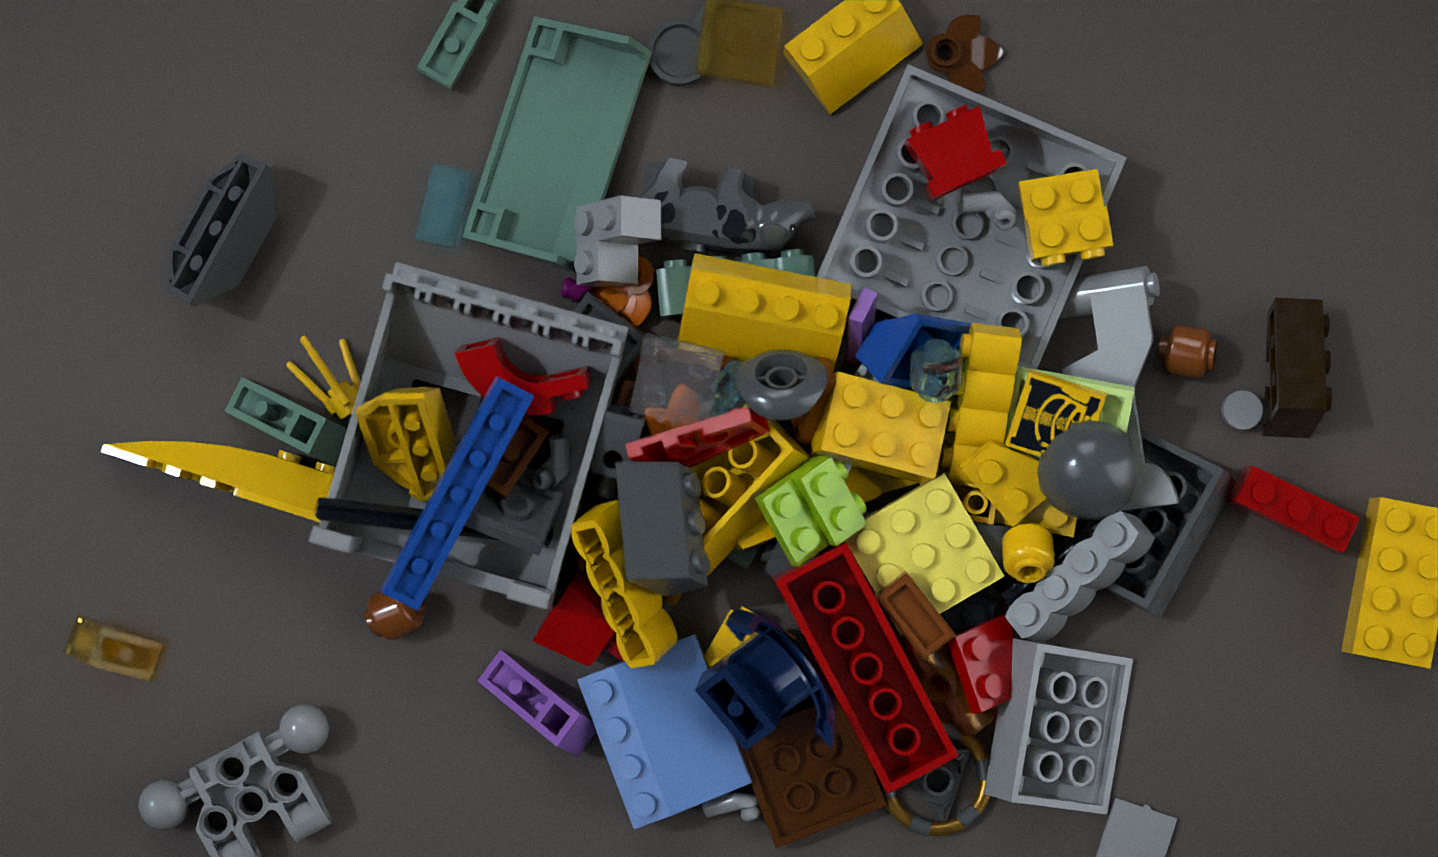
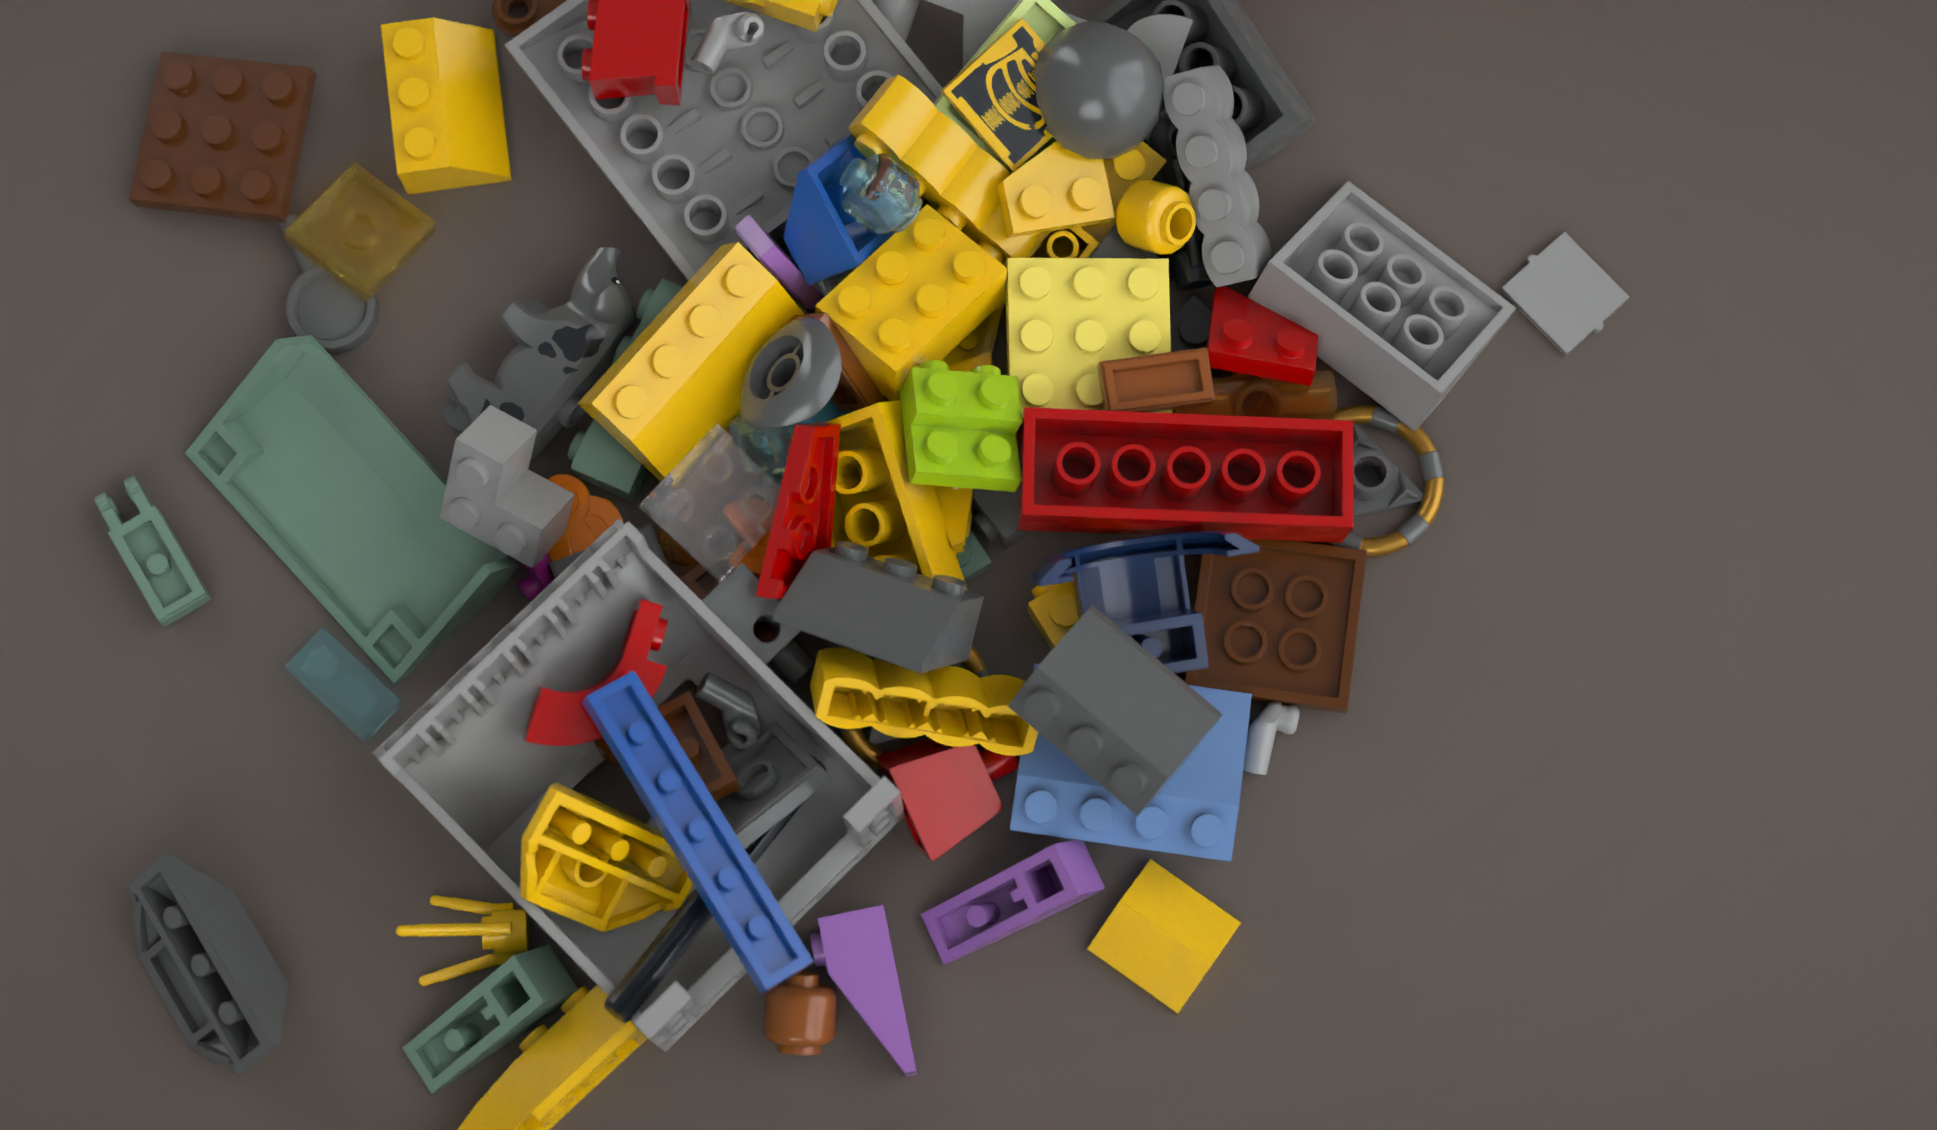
camera: 60 degrees left, 10 degrees down
(443, 635) = (864, 969): none -> medium lavender slope
(571, 809) = (1163, 936): none -> yellow slope
(679, 710) = (1115, 710): none -> dark grey slope

